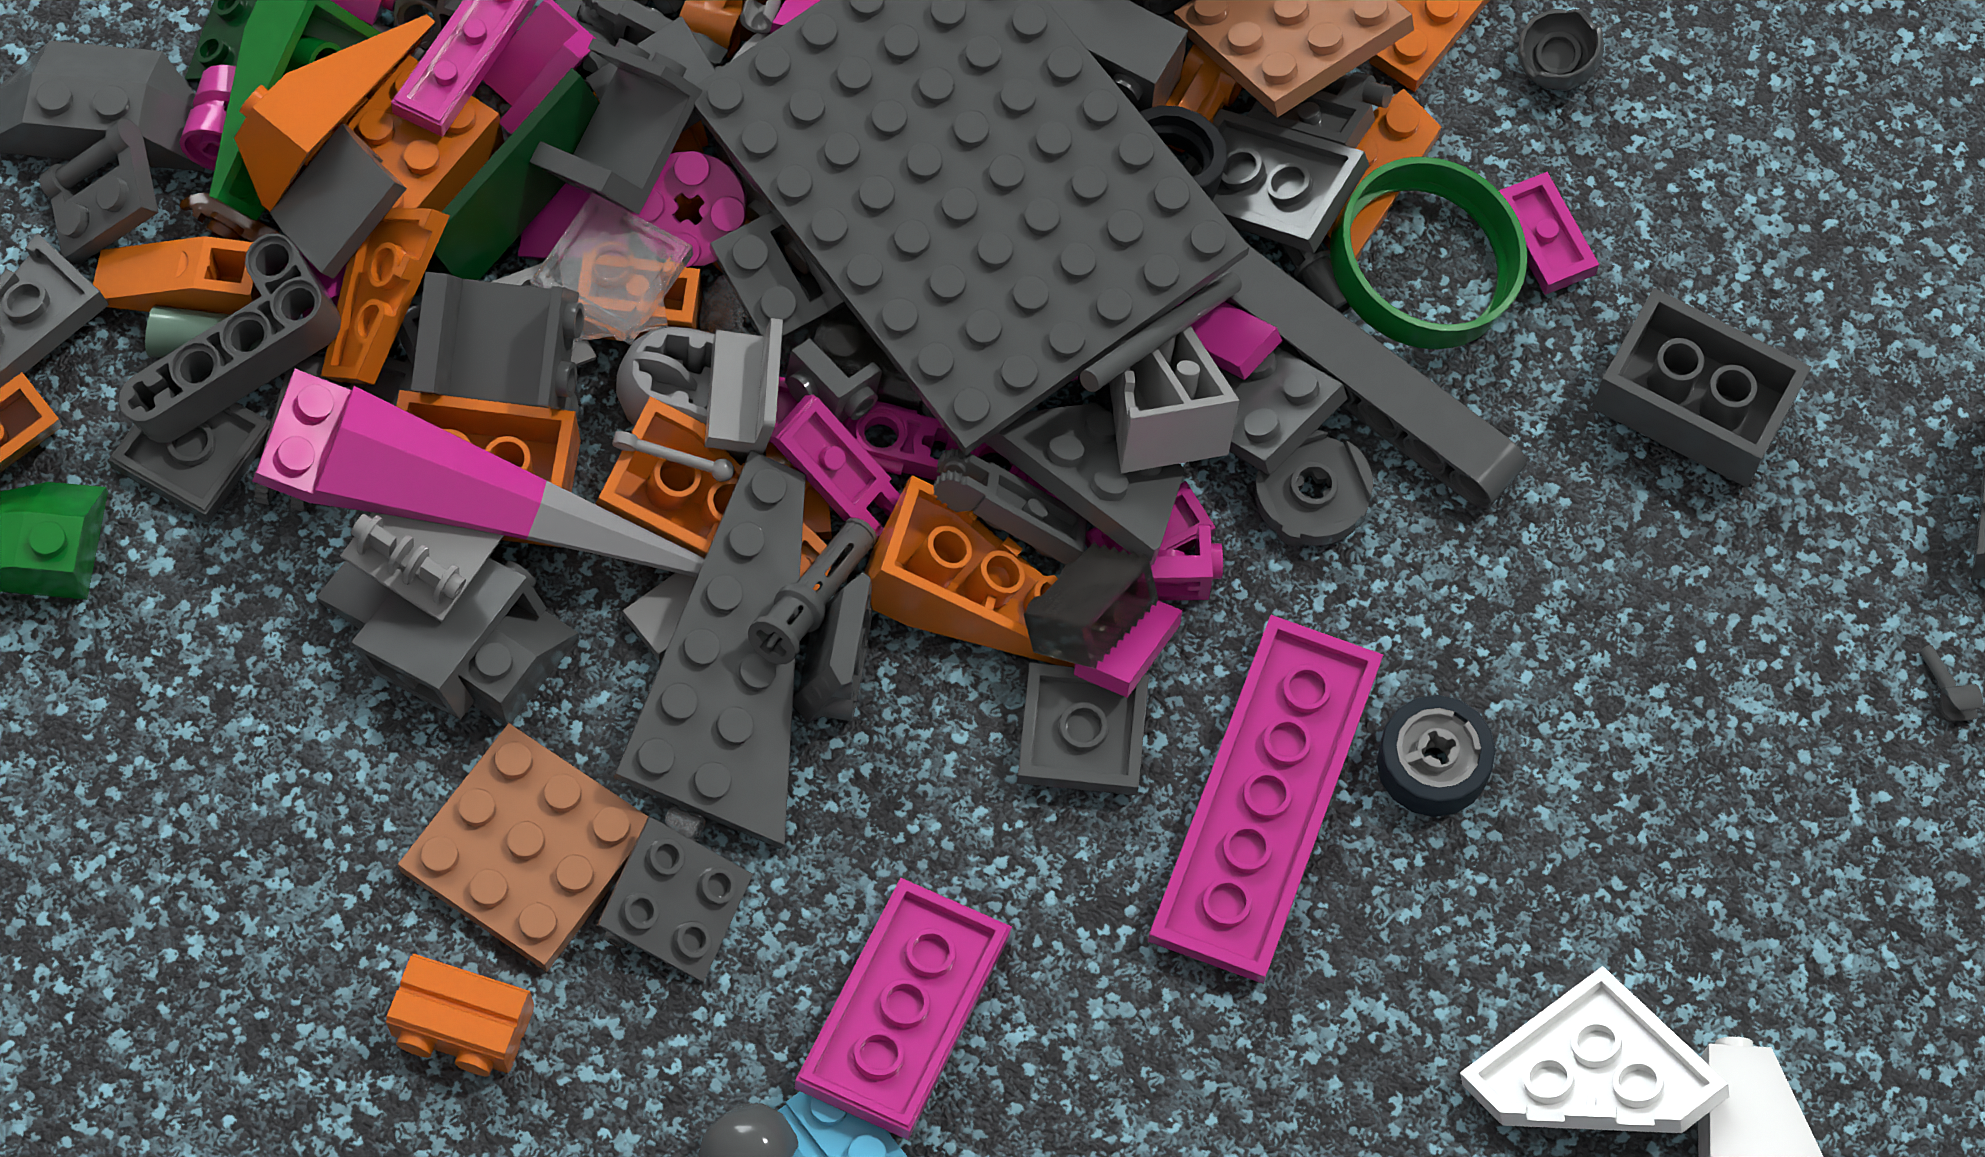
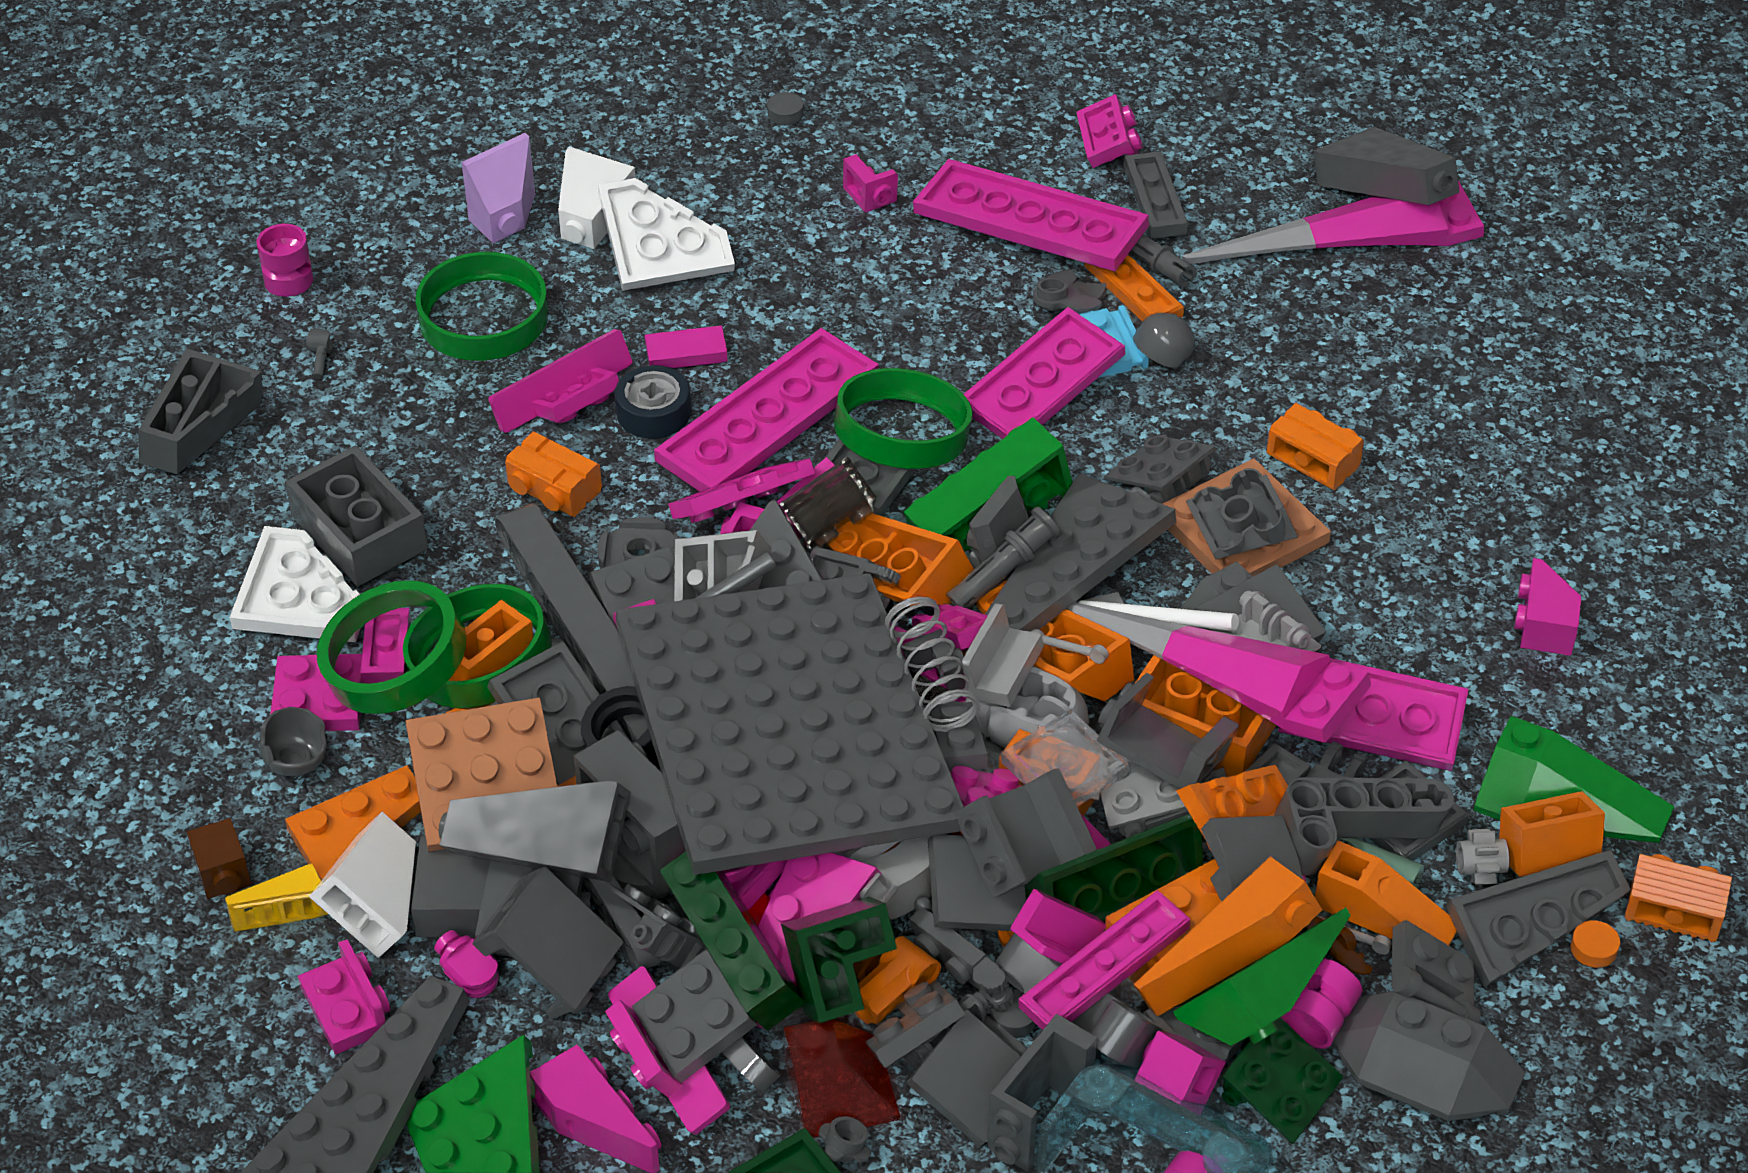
camera: 155 degrees left, 20 degrees down
(59, 818) = (1550, 611): none -> dark pink slope
(76, 387) = (1482, 856): none -> light grey gear
(252, 572) = (1404, 719): none -> dark pink tile
(518, 801) = (1241, 515): none -> dark grey slope
(575, 569) = (1187, 617): none -> white bar
(858, 353) = (947, 696): none -> light grey piece
(883, 736) = (1026, 453): none -> green wedge
(1056, 738) = (908, 386): none -> green piece
(1224, 607) = (730, 493): none -> dark pink wing
(1409, 239) = (493, 641): none -> orange brick
(1447, 889) = (686, 347): none -> dark pink tile
(1480, 226) = (413, 685): none -> green piece
(1496, 567) = (553, 474): none -> orange brick
(1561, 731) = (564, 385): none -> dark pink bracket
(1590, 149) = (302, 686): none -> dark pink plate
(1711, 259) = (290, 587): none -> white plate
(1819, 777) = (480, 267): none -> green piece
(1878, 1061) = (500, 188): none -> lavender slope

